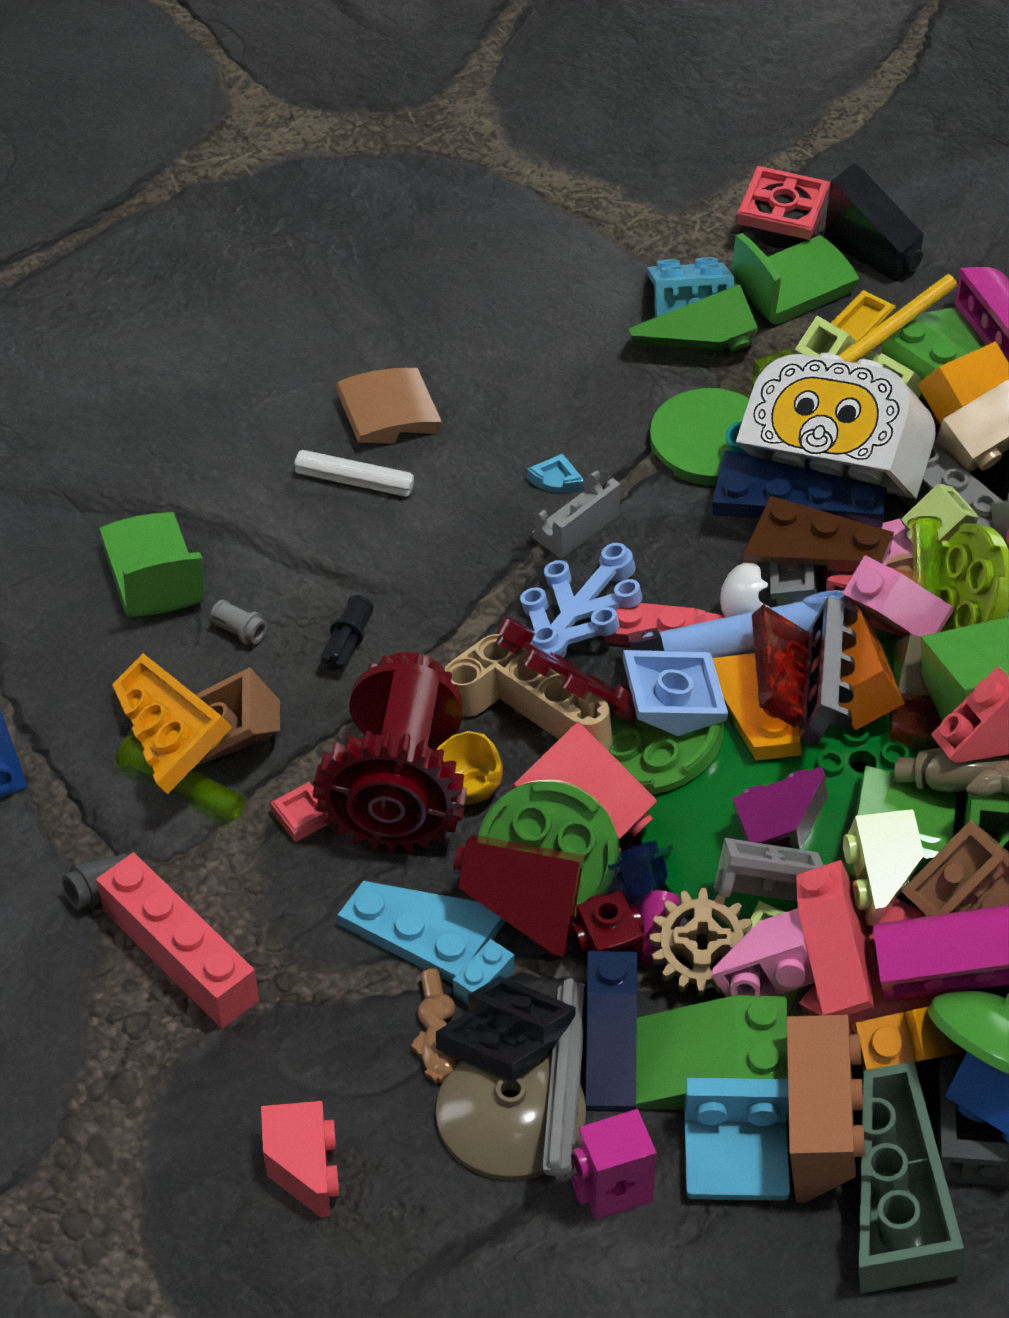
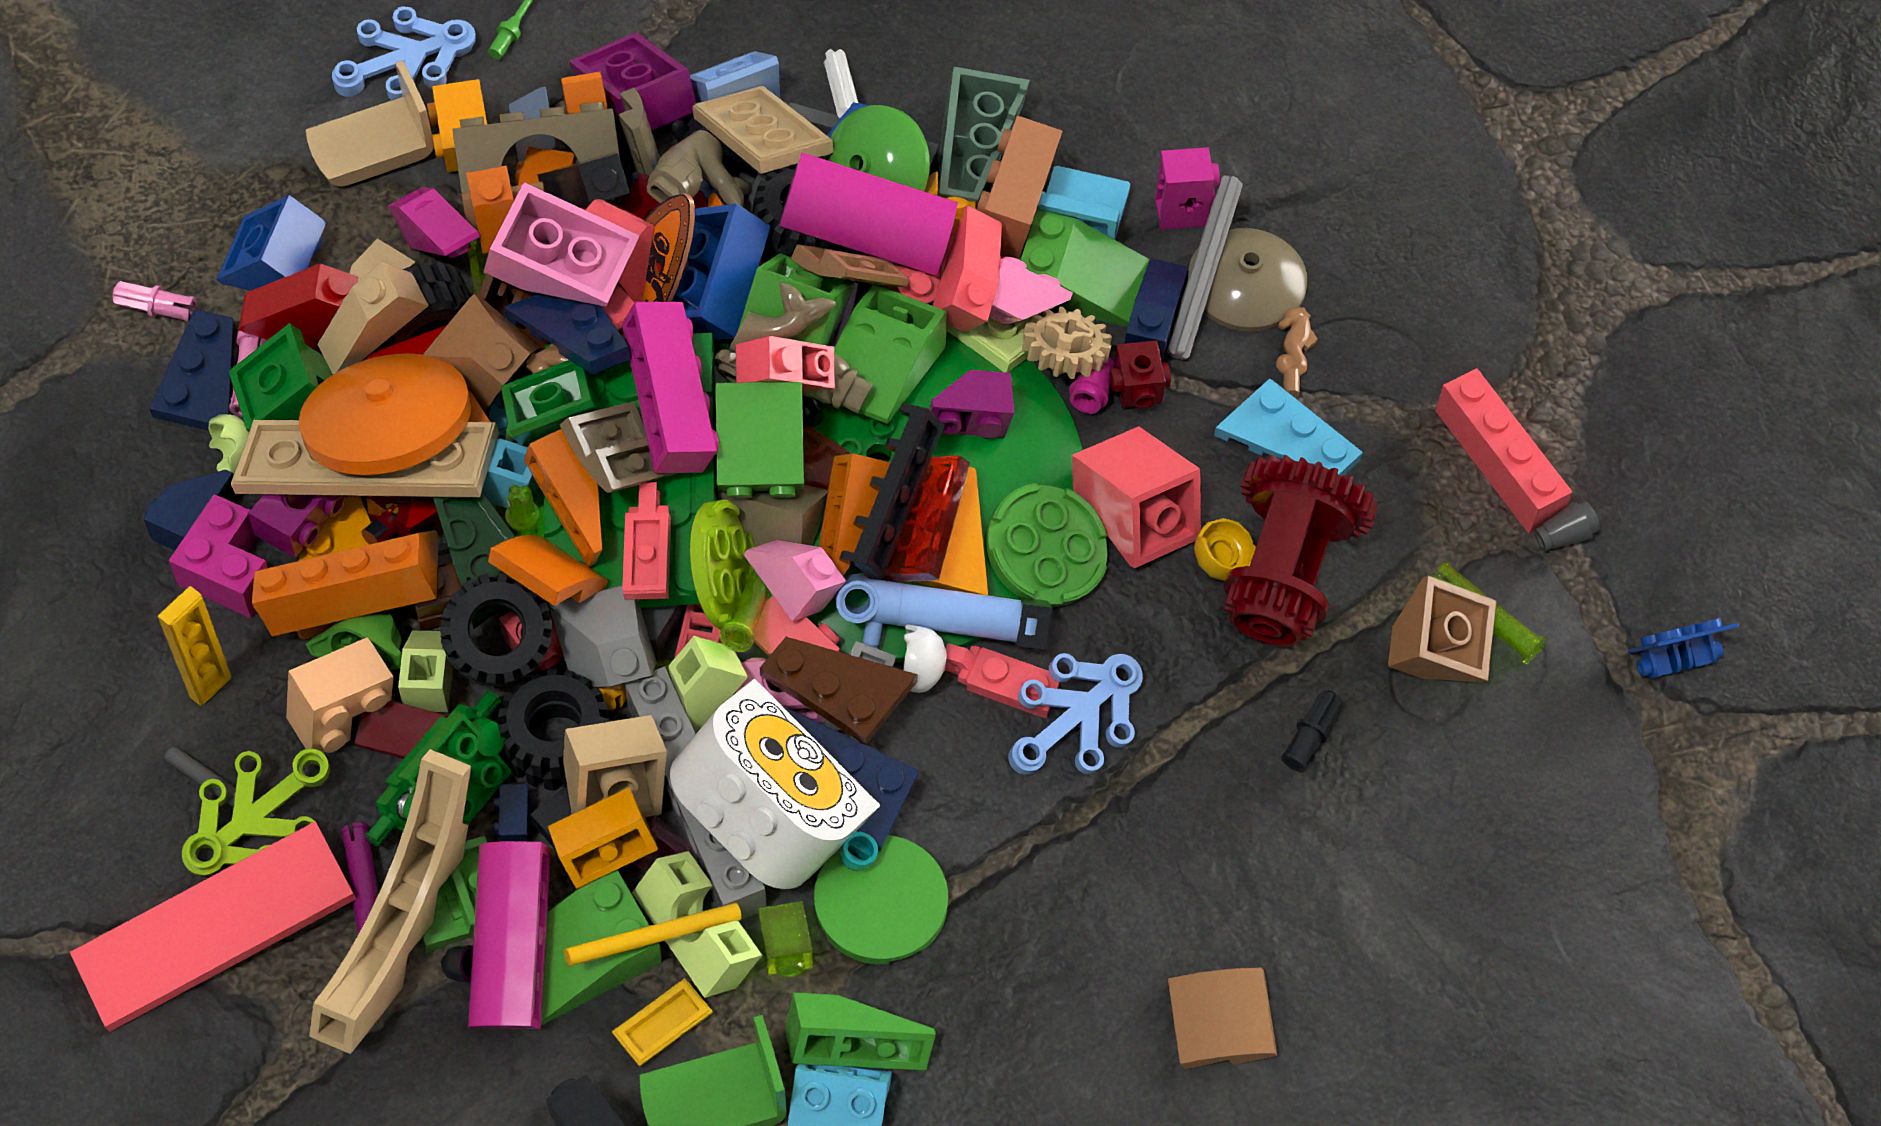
camera: 170 degrees left, 10 degrees up
(152, 565) = (1498, 842): bright green piece -> none
(168, 721) = (1493, 627): light orange wing -> none
(248, 626) = (1416, 769): light grey pin -> none
(296, 1153) = (1421, 266): coral slope -> none
(298, 812) = (1379, 563): coral tile -> none
(354, 473) = (1274, 935): white axle -> none
(484, 967) = (1247, 378): medium azure piece -> none
(494, 673) = (1152, 600): tan beam -> none
(505, 1028) = (1243, 311): black slope -> none
(516, 636) = (1109, 593): dark red plant -> none
(524, 886) = (1208, 408): dark red slope -> none
(556, 476) = (1059, 887): medium azure tile -> none
(560, 819) = (1177, 436): bright green tile -> none
(579, 517) = (1053, 818): light grey hinge -> none
(643, 867) = (1099, 409): clear blue hinge -> none
(675, 689) = (1026, 551): light blue slope -> none
(762, 869) = (1000, 350): light grey hinge -> none
(884, 858) = (916, 295): slope -> none

